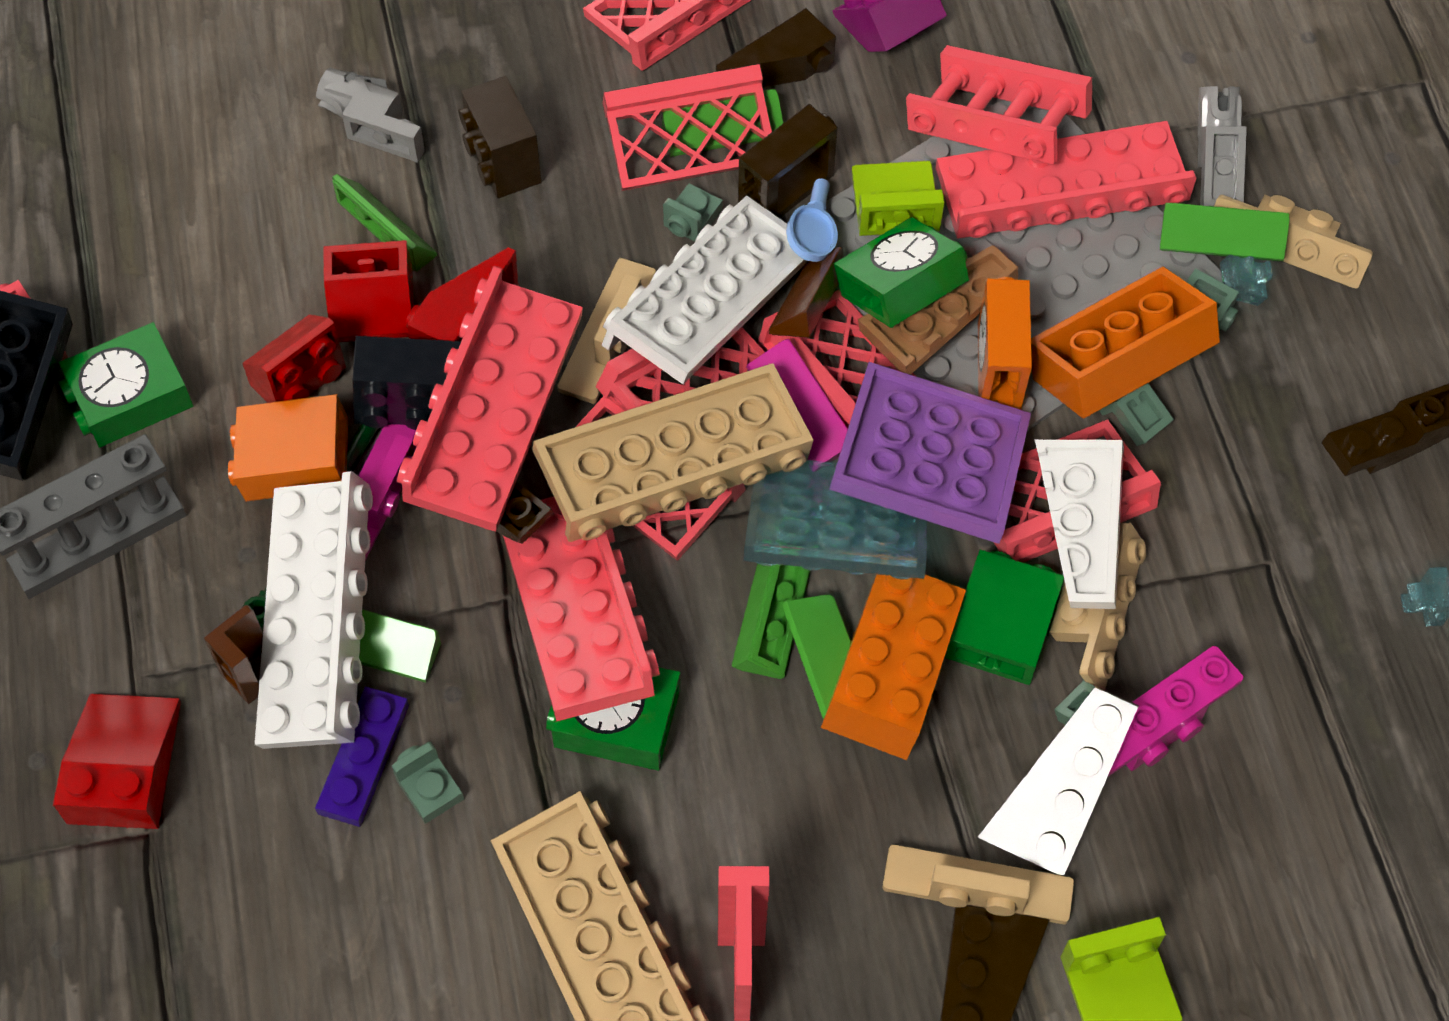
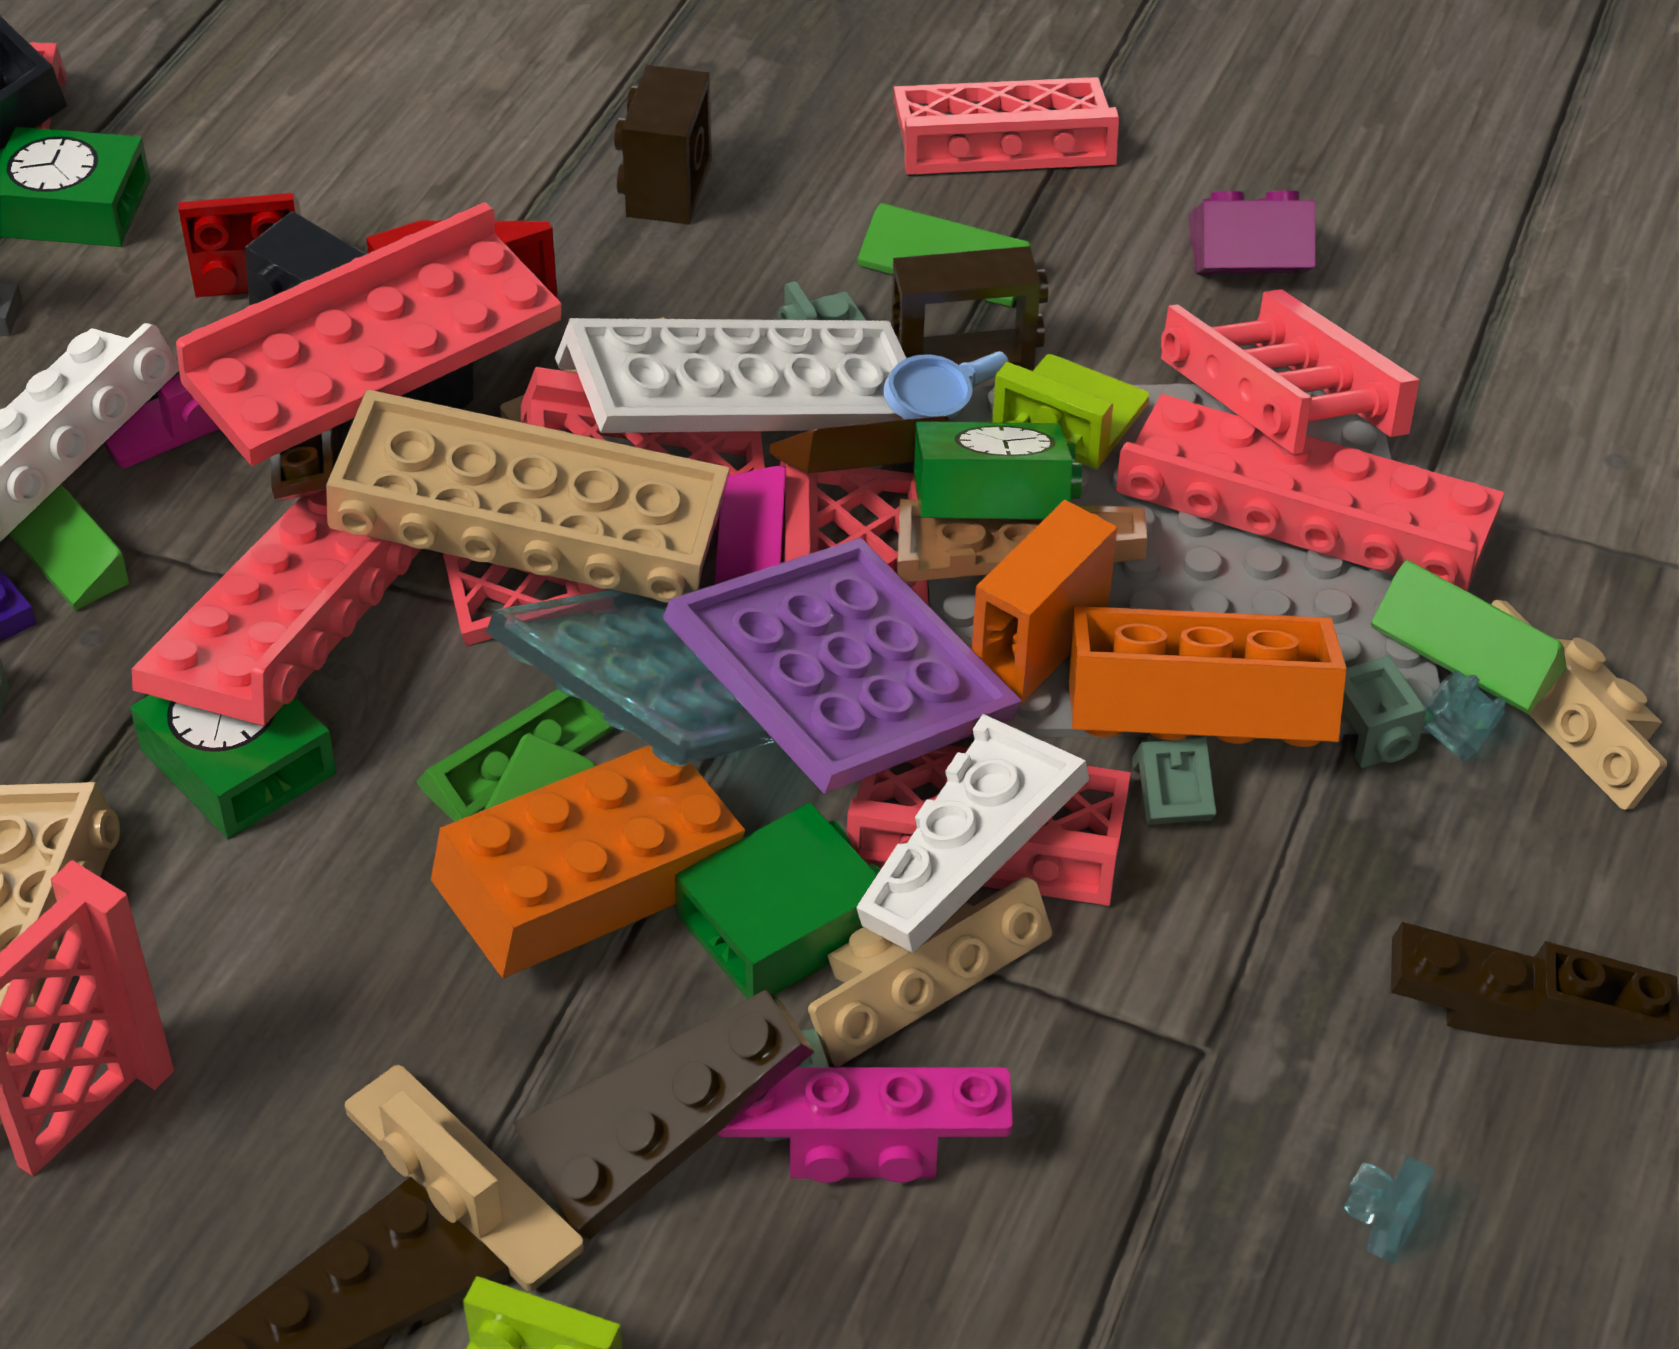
camera: 35 degrees right, 15 degrees down
(288, 445) = (155, 291): orange brick -> none
(368, 289) = (386, 192): red slope -> none
(370, 113) = (562, 73): light grey plate -> none
(380, 219) = (477, 161): bright green slope -> none
(673, 96) = (898, 189): coral fence -> none
(788, 51) = (1071, 221): dark brown slope -> none
(1221, 144) = (1557, 545): light grey plate -> none

